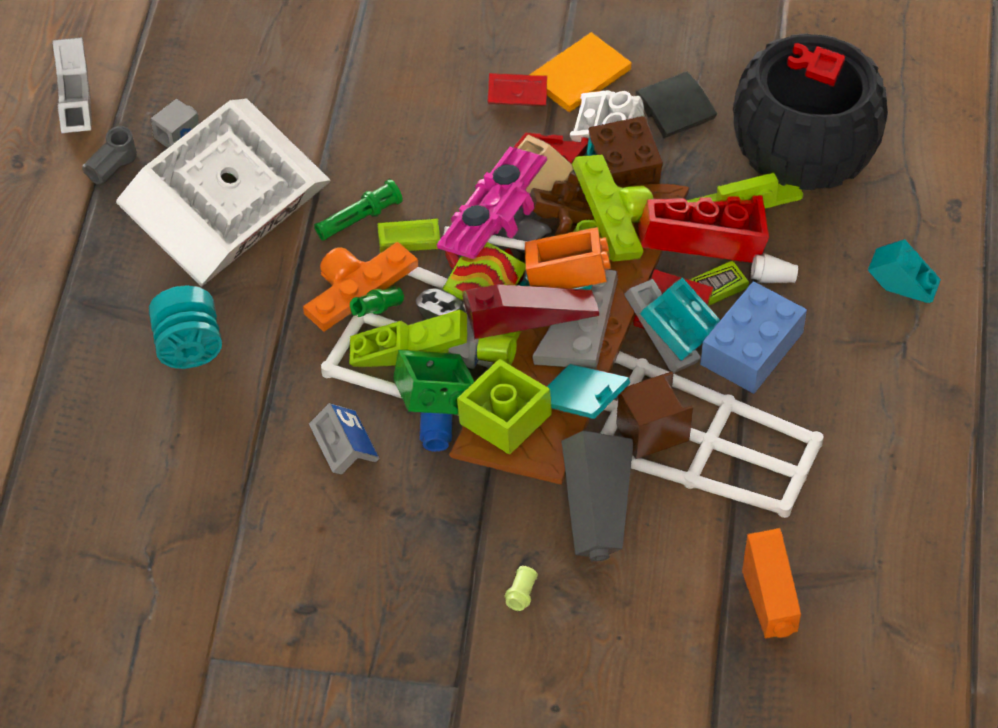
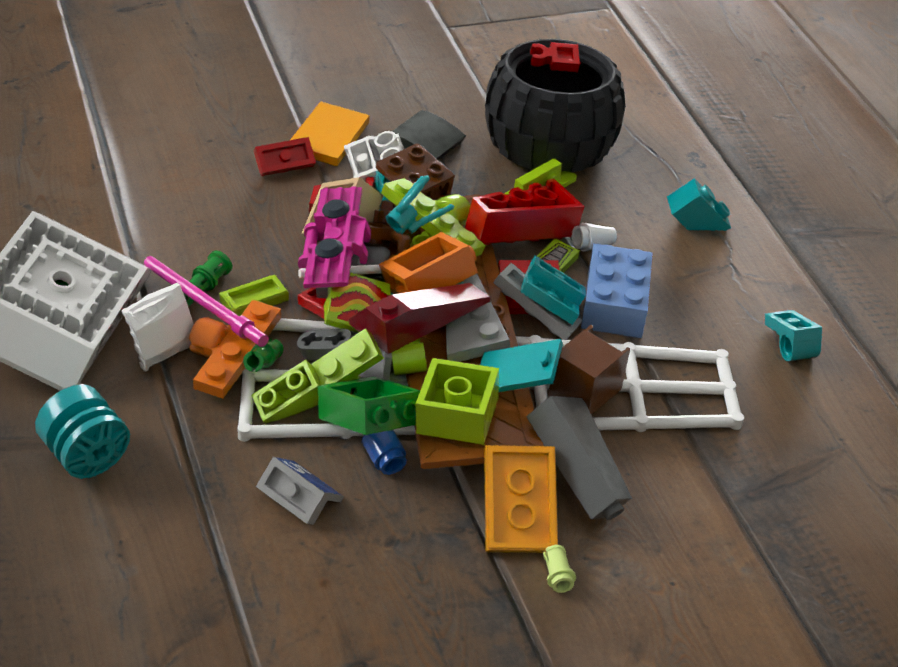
camera: 30 degrees left, 10 degrees down
(297, 243) = (159, 325): none -> white slope
(365, 266) = (239, 324): none -> dark pink bar
(520, 514) = (520, 498): none -> light orange tile
(570, 197) = (404, 214): none -> teal plant
(771, 583) = (781, 483): orange slope -> none
(904, 440) = (797, 334): none -> teal plate

